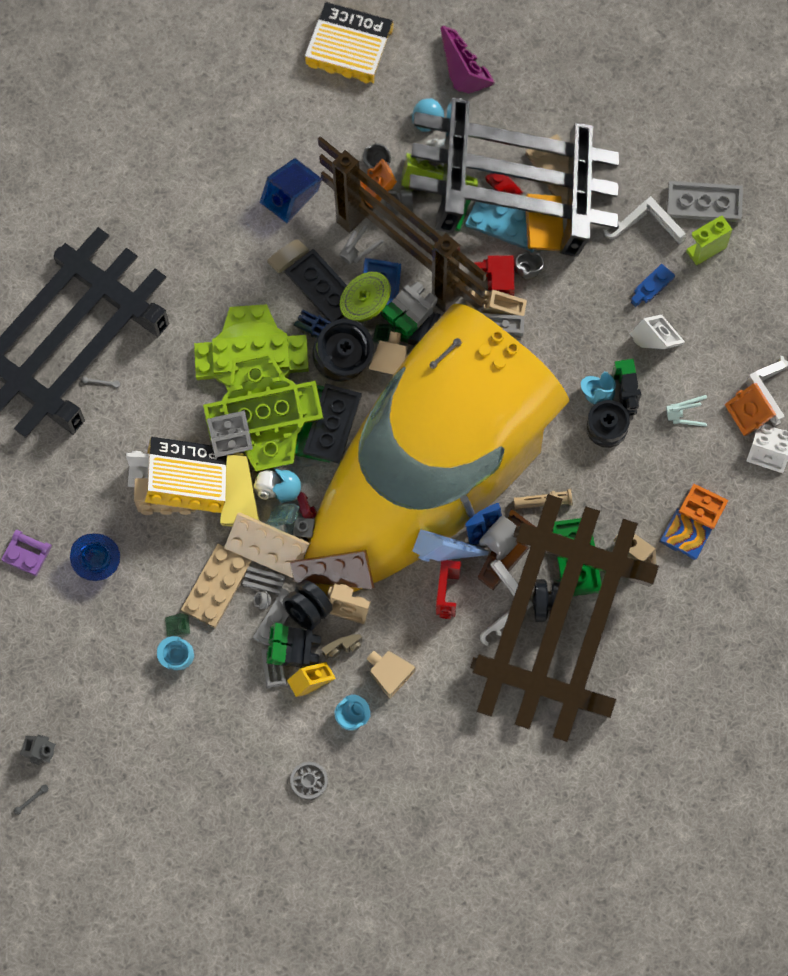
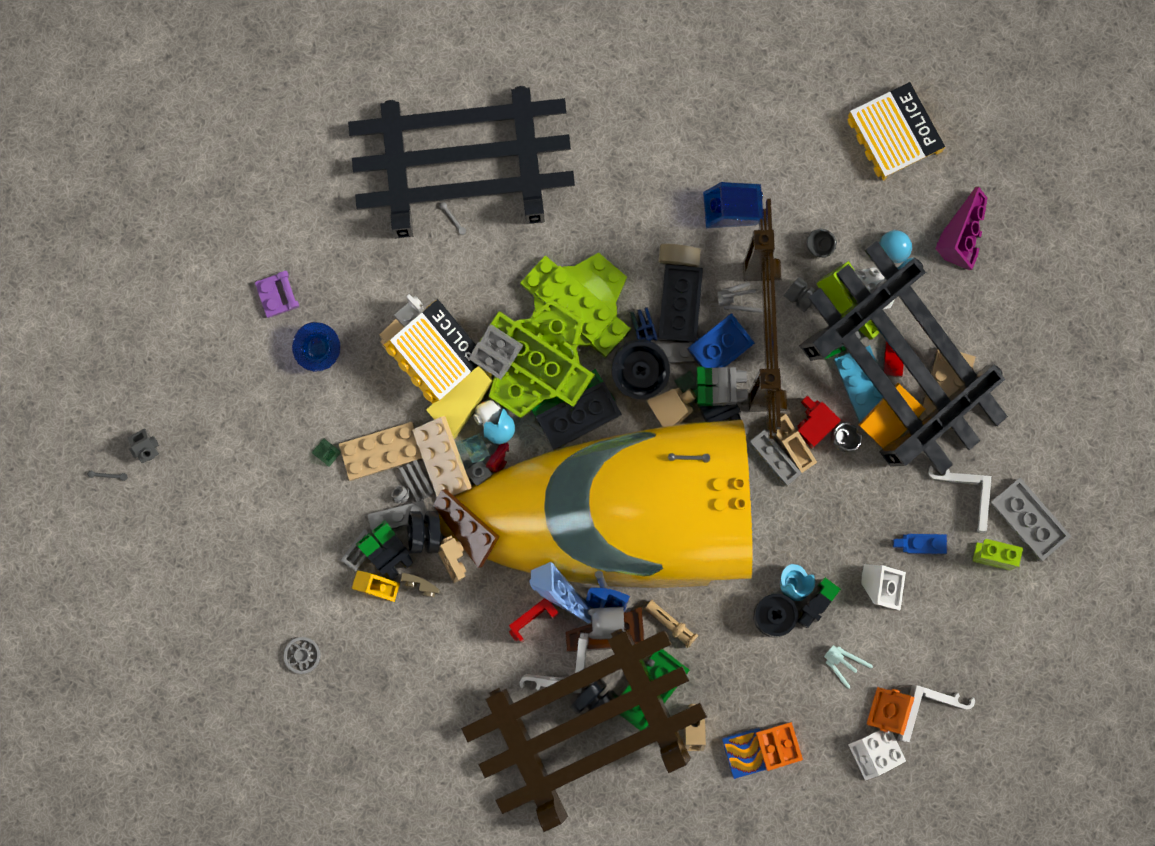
camera: 45 degrees right, 10 degrees up
(175, 653) = (301, 472): medium azure helmet -> none
(352, 712) = (376, 640): medium azure helmet -> none
(377, 293) = (685, 340): lime piece -> none
(383, 176) = (799, 264): orange plate -> none
(390, 671) = (433, 636): tan torso -> none

